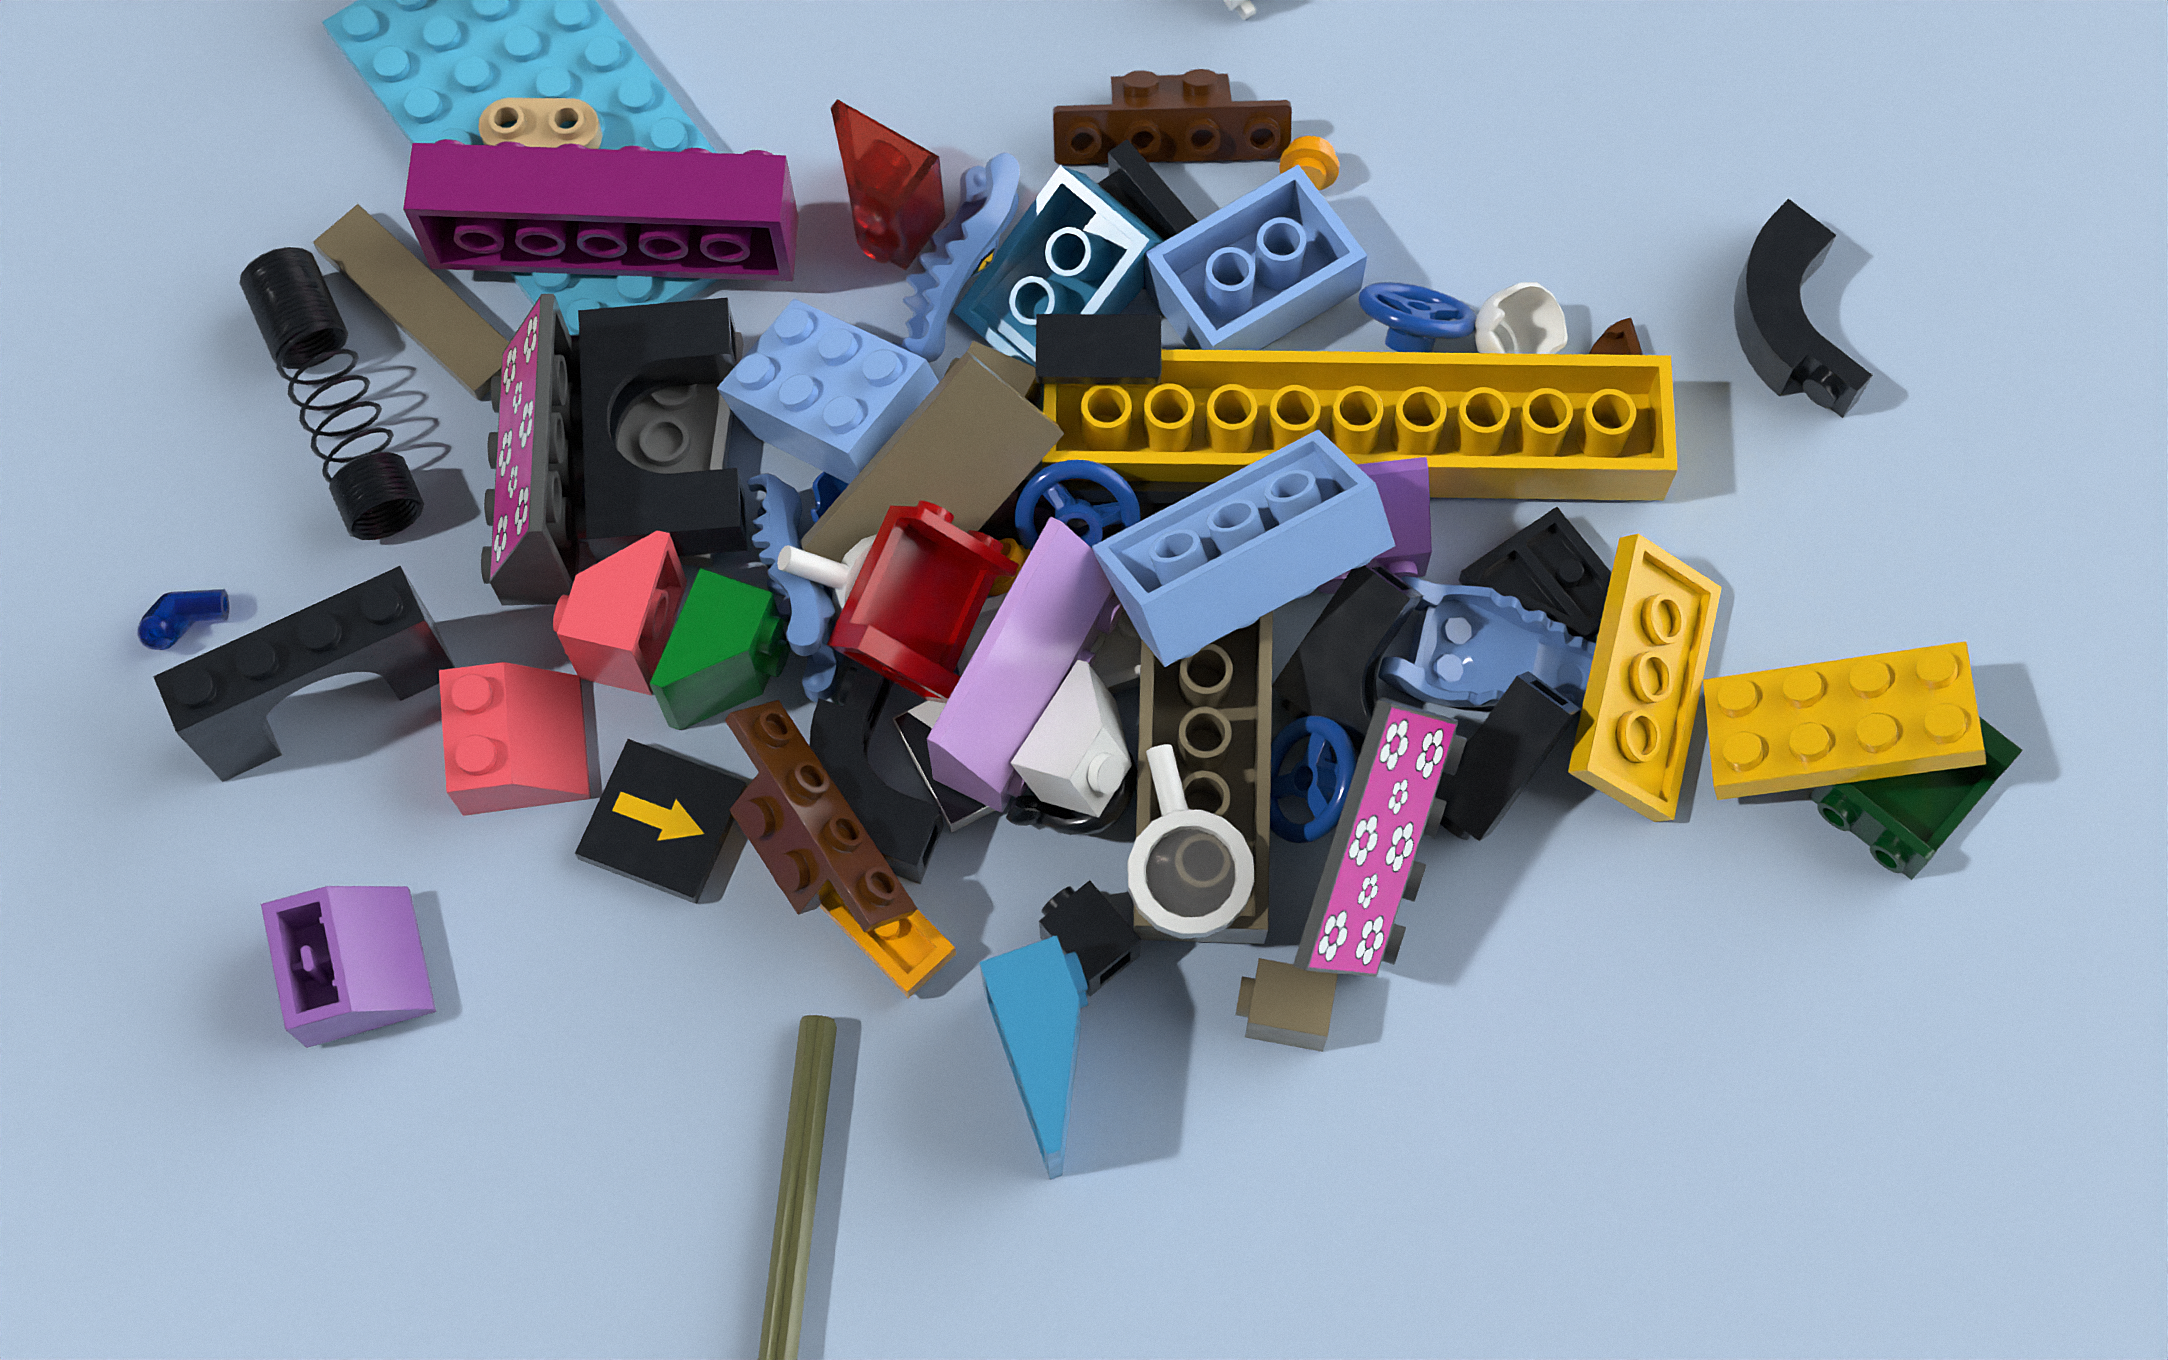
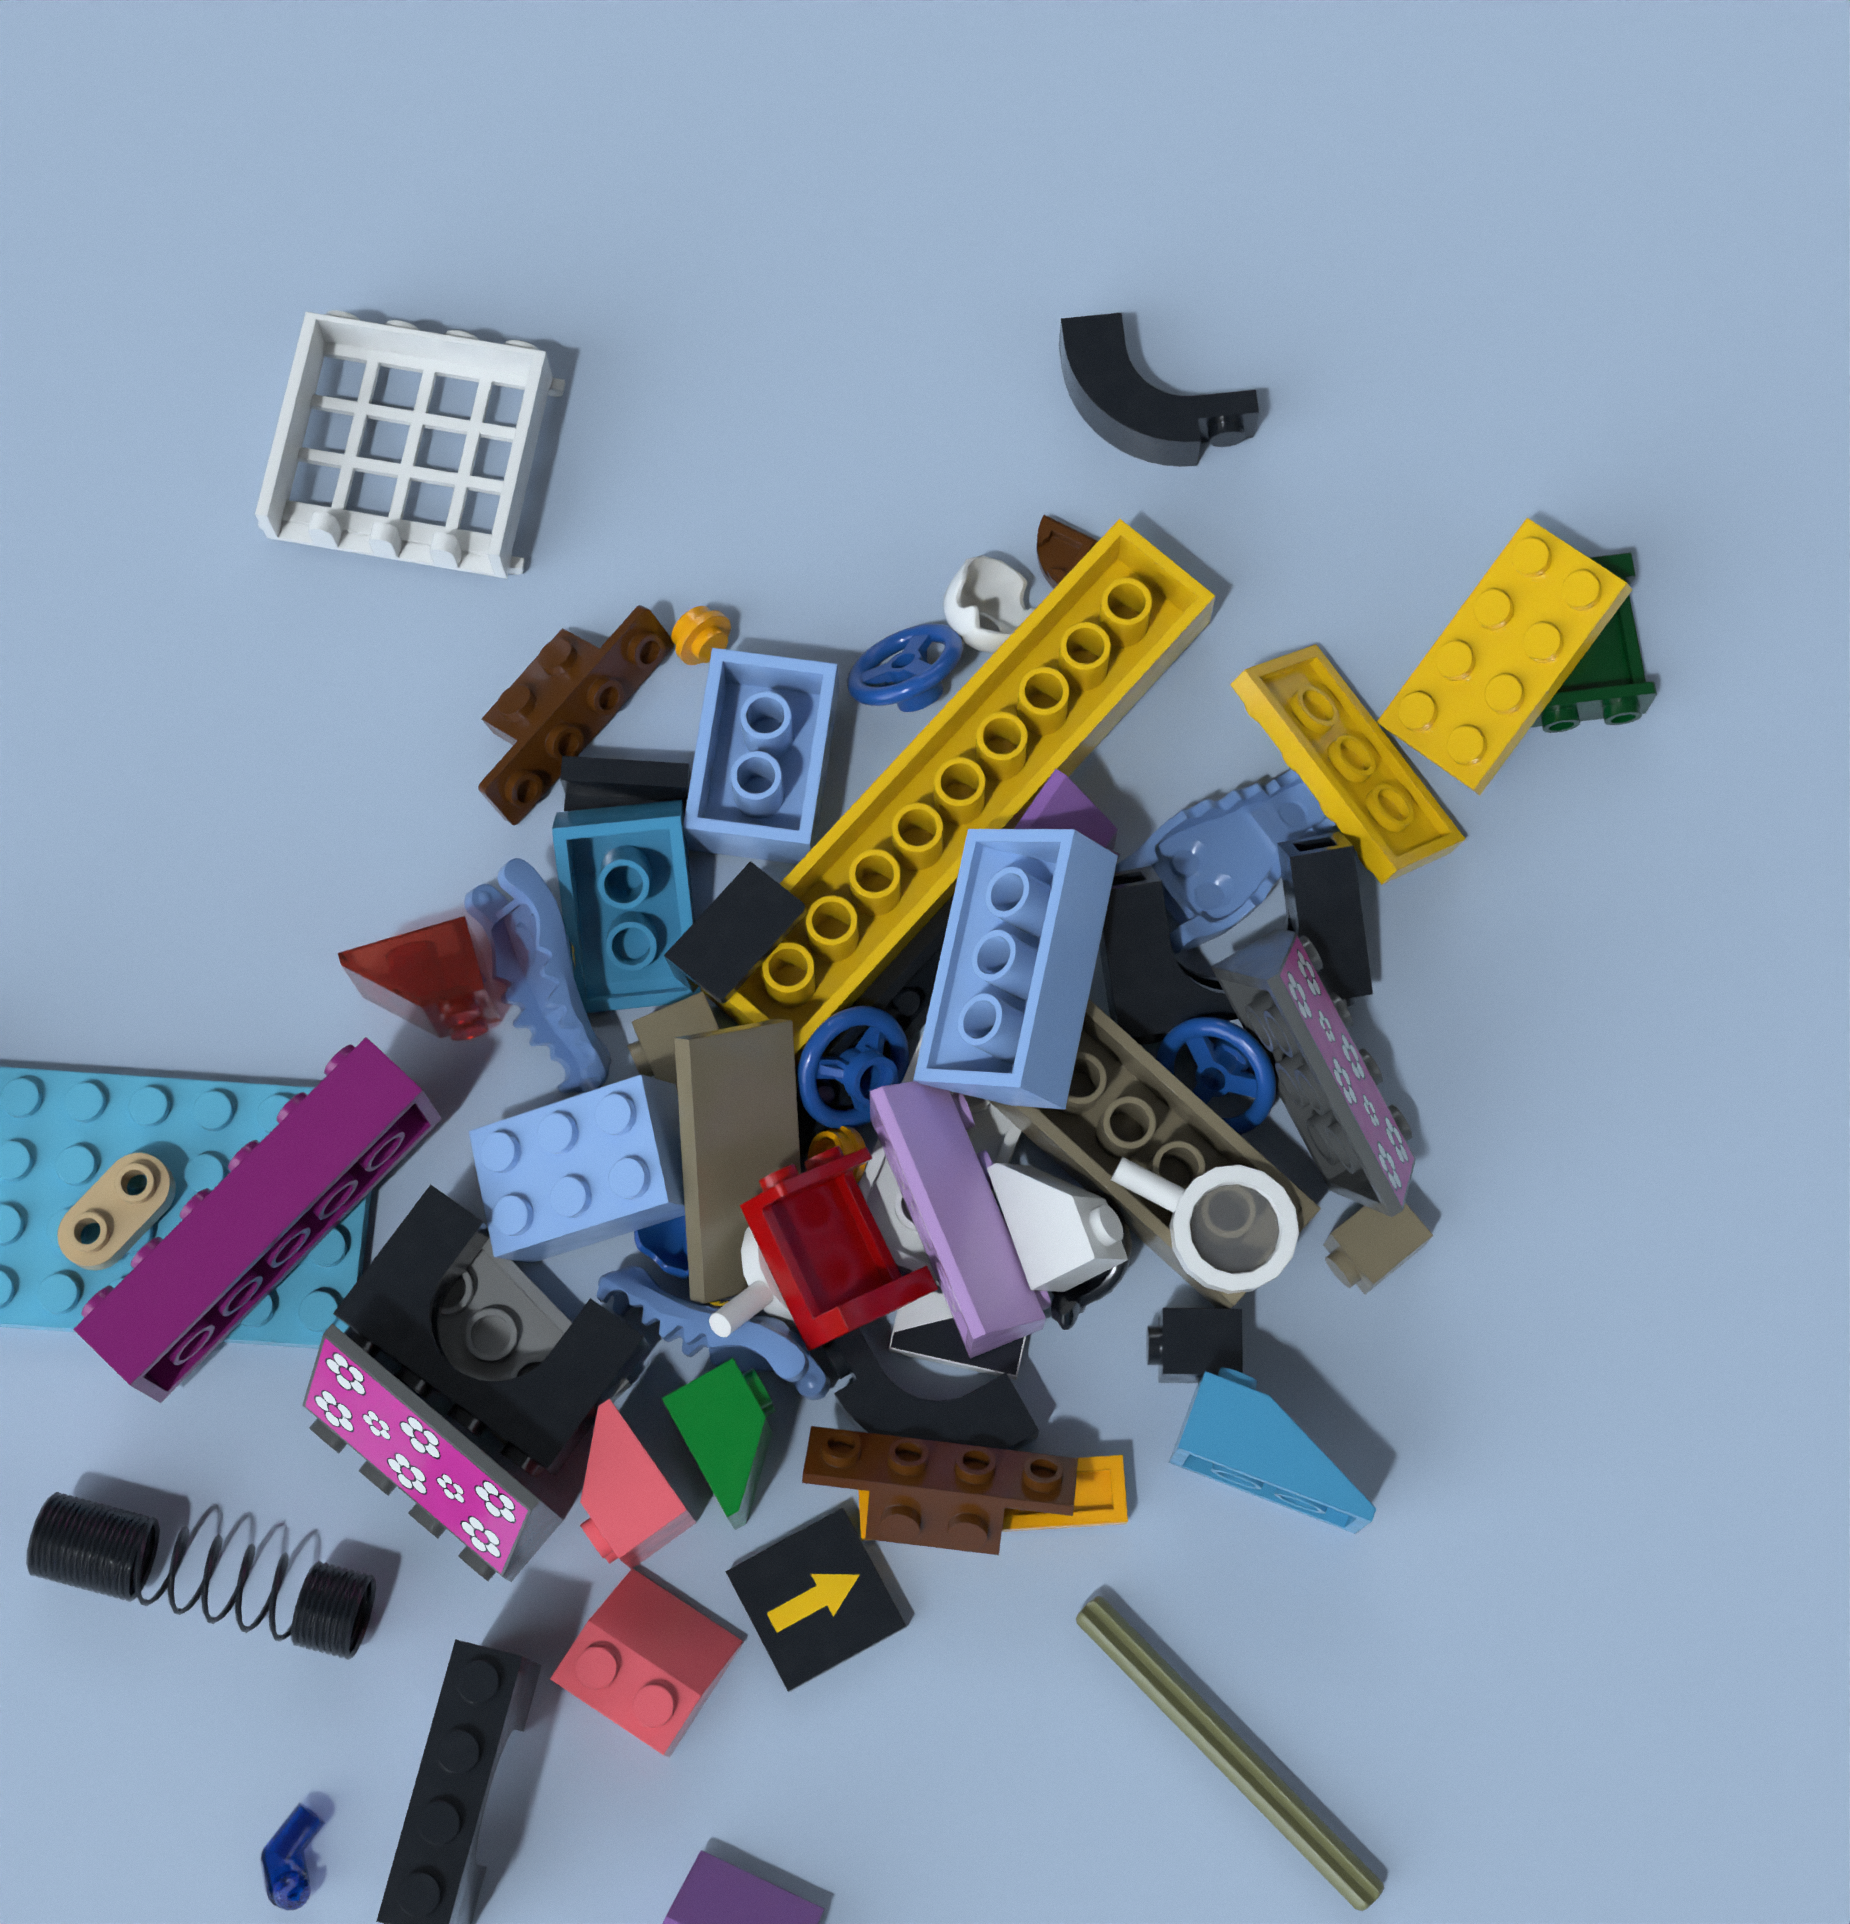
camera: 50 degrees left, 5 degrees up
(414, 299) = (171, 1437): dark tan tile -> none
(1548, 571) = (1202, 758): black wing -> none

